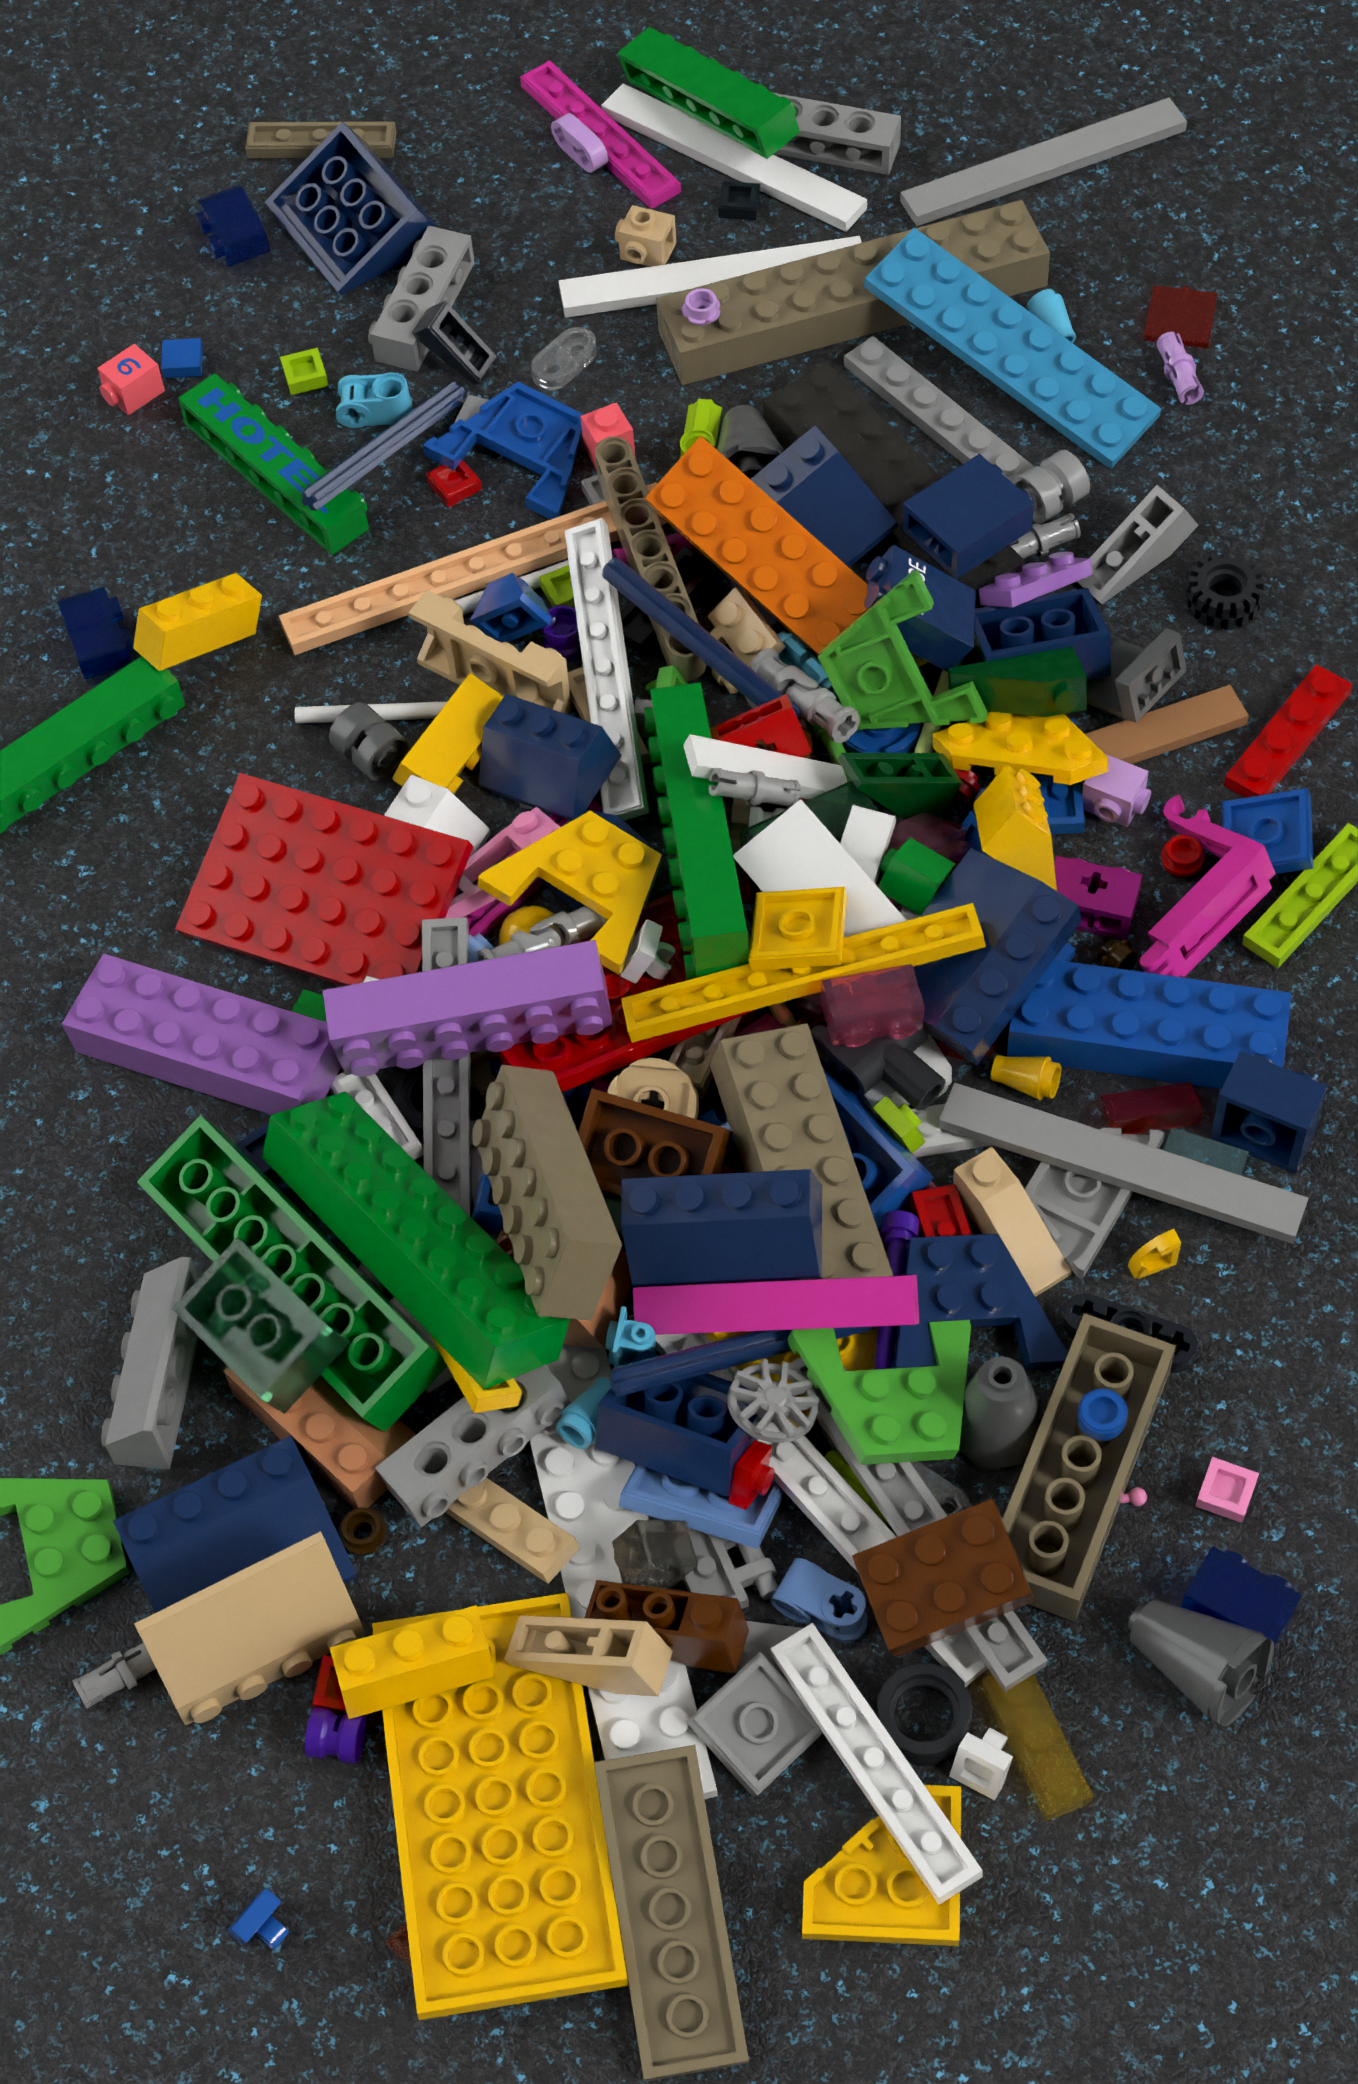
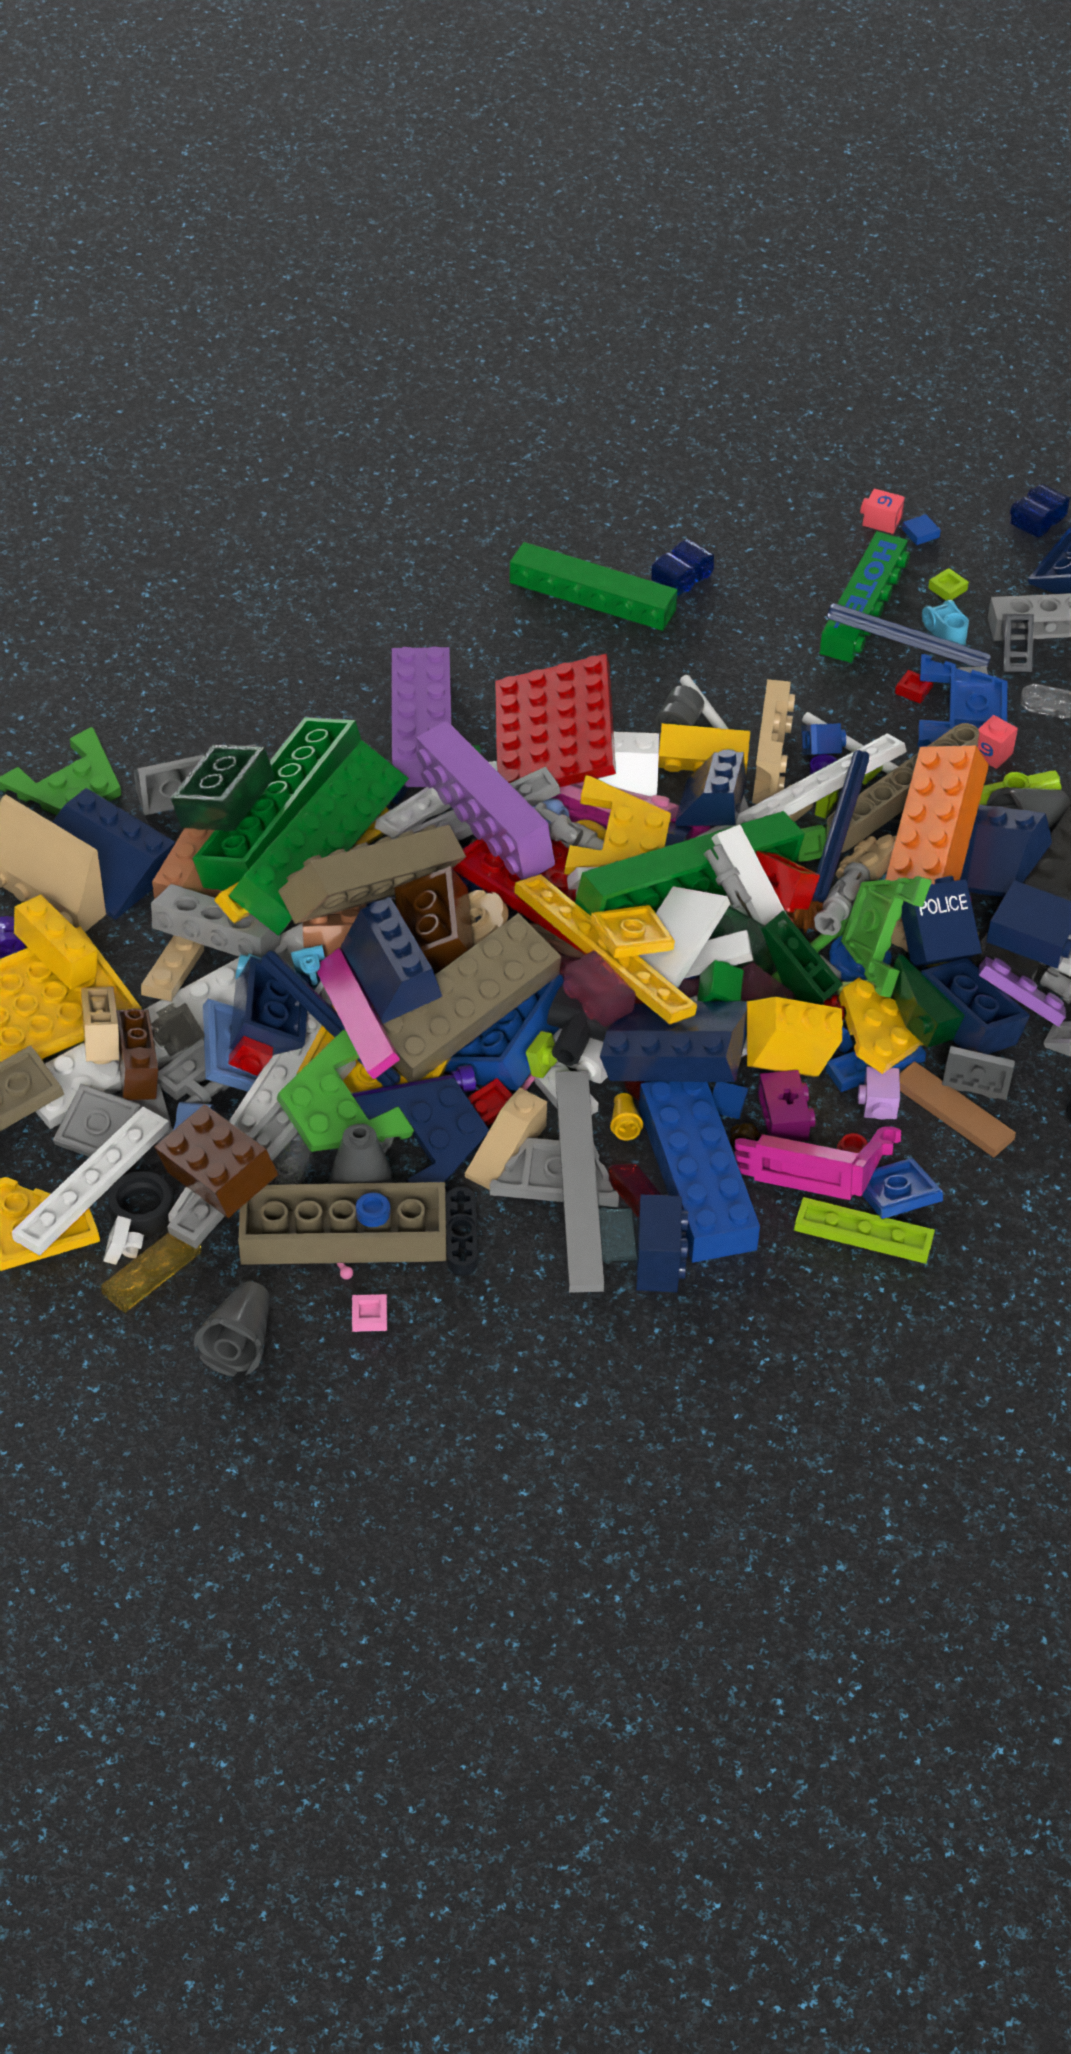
camera: 60 degrees right, 10 degrees down
(197, 621) = (711, 600): yellow brick -> none
(359, 1519) = (139, 906): dark brown plate -> none
(447, 576) = (818, 698): light nougat plate -> none
(773, 1402) = (294, 1038): light grey wheel -> none
(1156, 1255) = (525, 1226): yellow tile -> none
(1242, 1595) = (290, 1341): clear blue brick -> none
(1288, 733) = (999, 1181): red plate -> none

